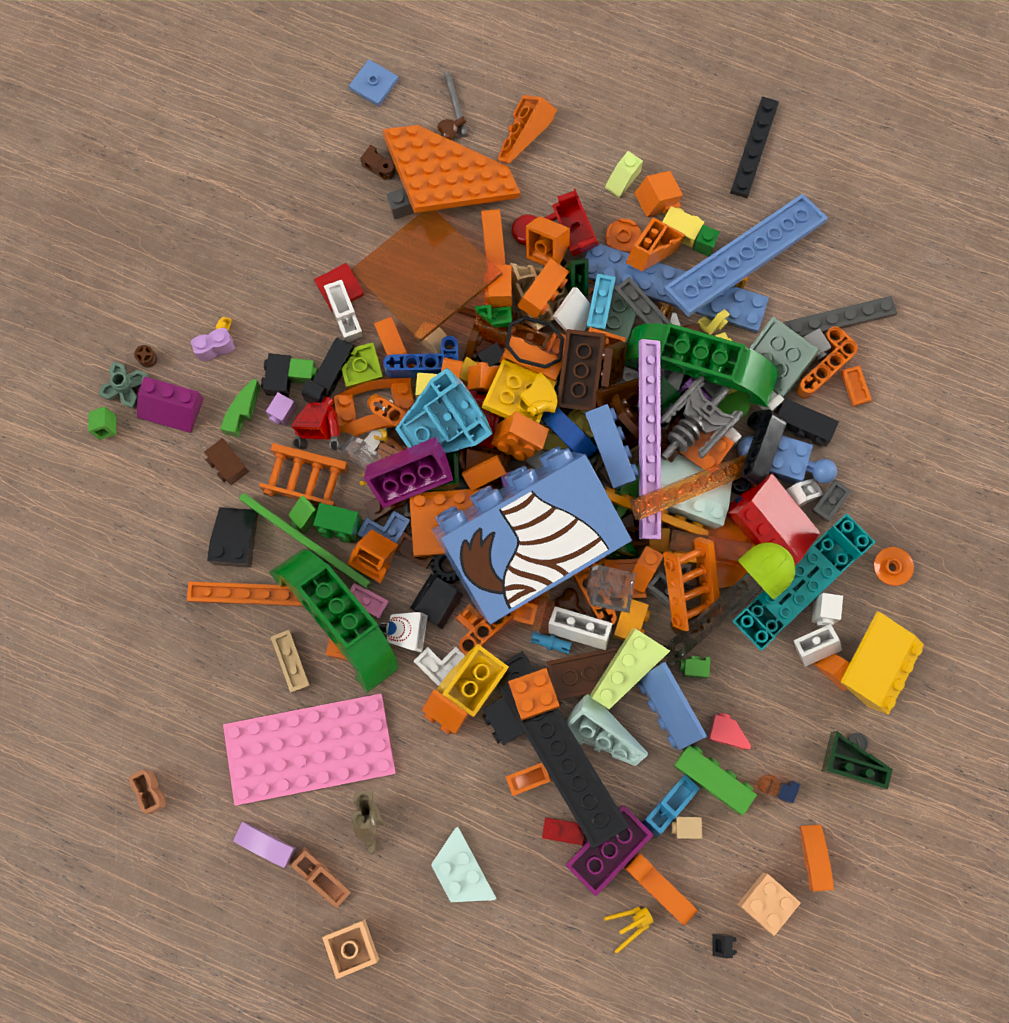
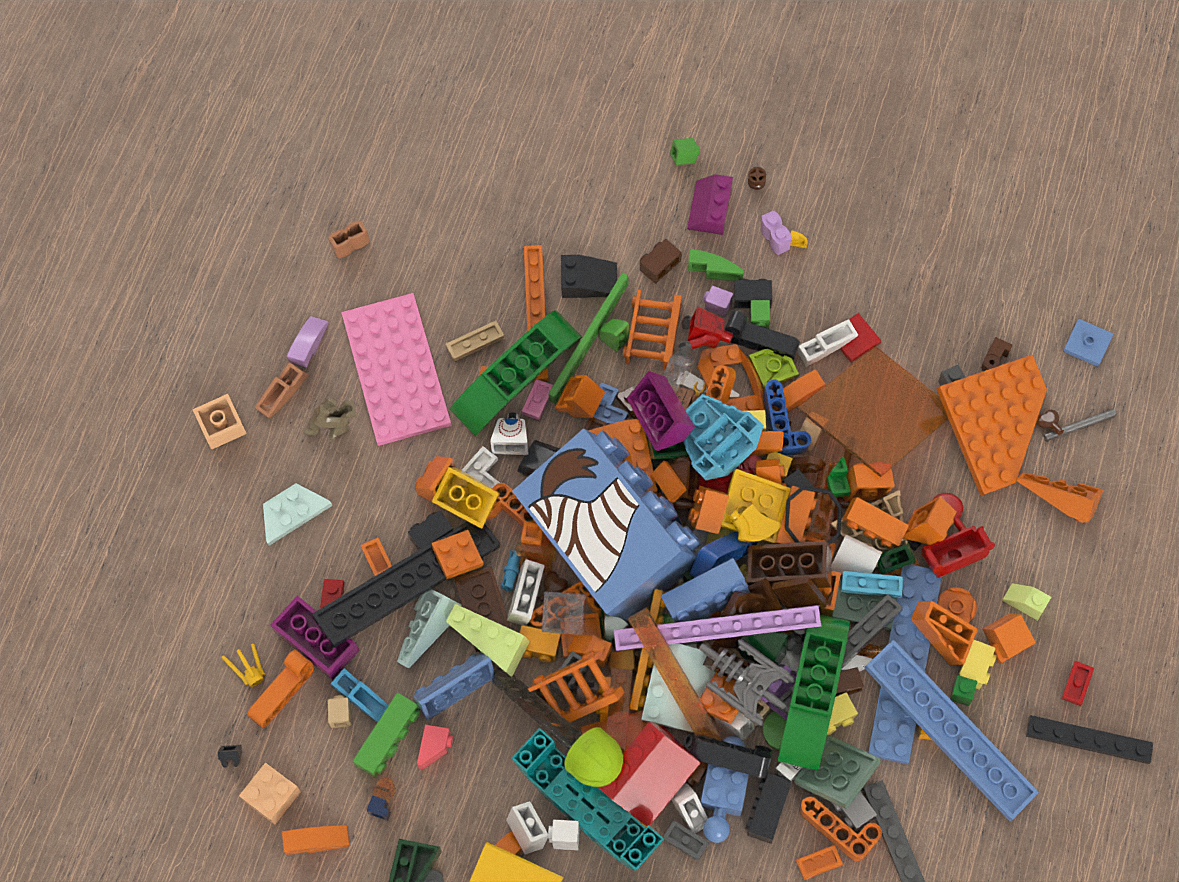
camera: 85 degrees right, 10 degrees down
(122, 385) = (726, 162): sand green plant -> none
(337, 523) = (608, 361): green brick -> none
(493, 236) = (926, 472): orange beam -> none
(695, 667) = (497, 709): bright green brick -> none
(704, 146) = (1077, 683): none -> red plate
(718, 322) = (867, 703): light yellow bracket -> none

